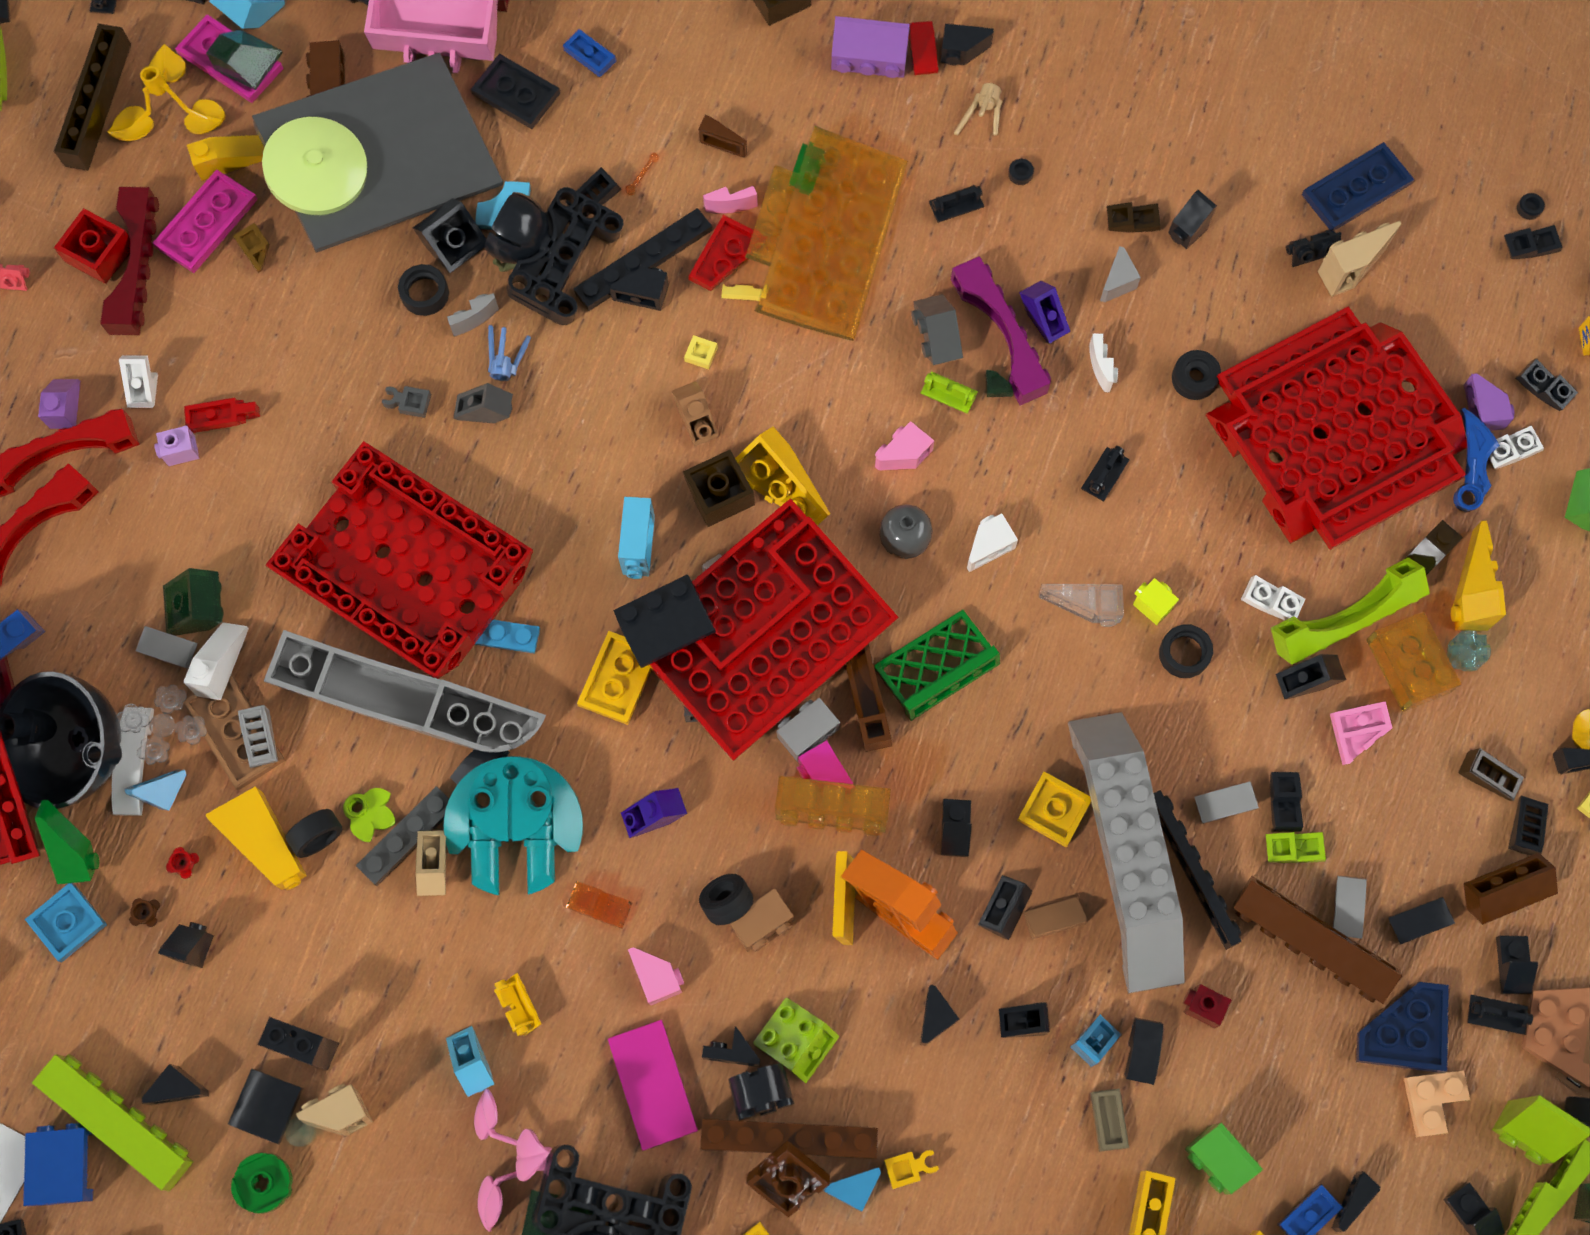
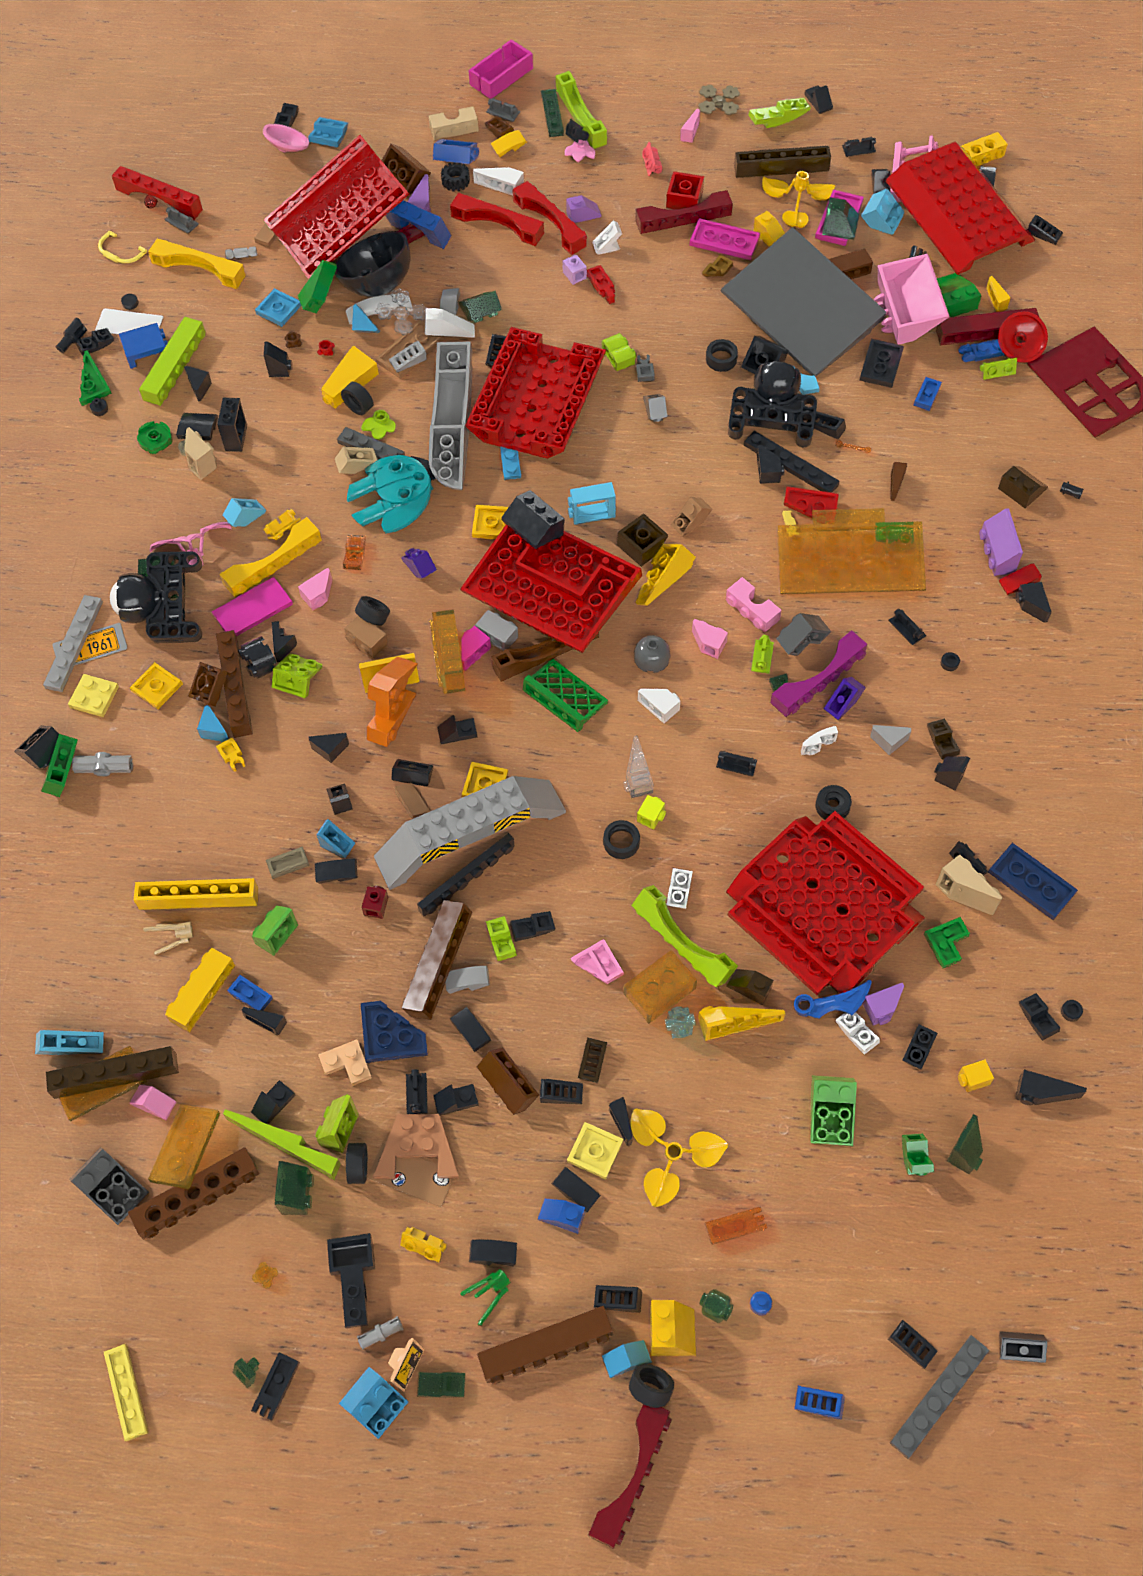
camera: 75 degrees right, 10 degrees down
(276, 584) = (495, 339): none -> black slope
(314, 165) = (774, 269): yellowish green dish -> none
(363, 425) = (619, 352): none -> lime brick
(482, 309) = (716, 386): light grey slope -> none
(501, 366) = (685, 408): medium blue plant -> none
(594, 1089) = (244, 576): none -> yellow arch
(700, 352) = (737, 510): light yellow tile -> none
(722, 202) = (850, 495): bright pink slope -> none
(850, 390) = (762, 615): none -> bright pink arch
(987, 99) = (997, 626): tan plant -> none
(1226, 802) = (519, 886): light grey slope -> none
(1311, 676) = (628, 922): black slope -> none
(1414, 313) = (943, 938): none -> green plate

